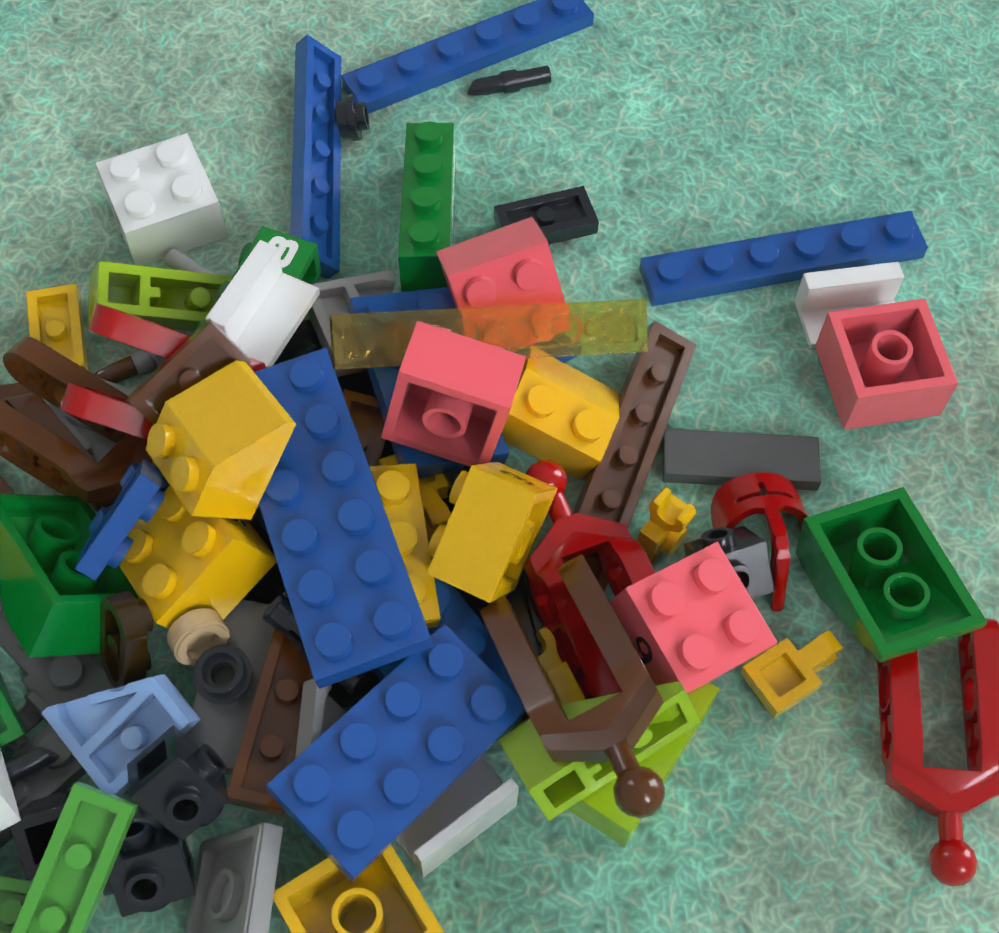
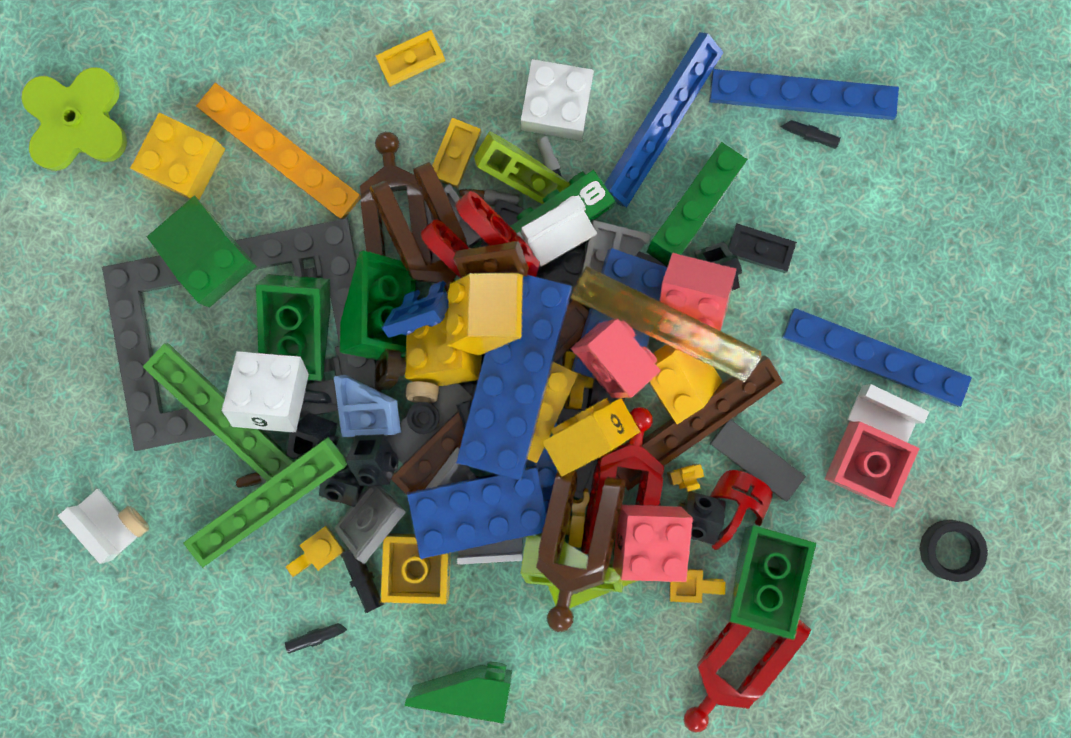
camera: 40 degrees right, 25 degrees up
(352, 117) = (699, 106): black plate -> none

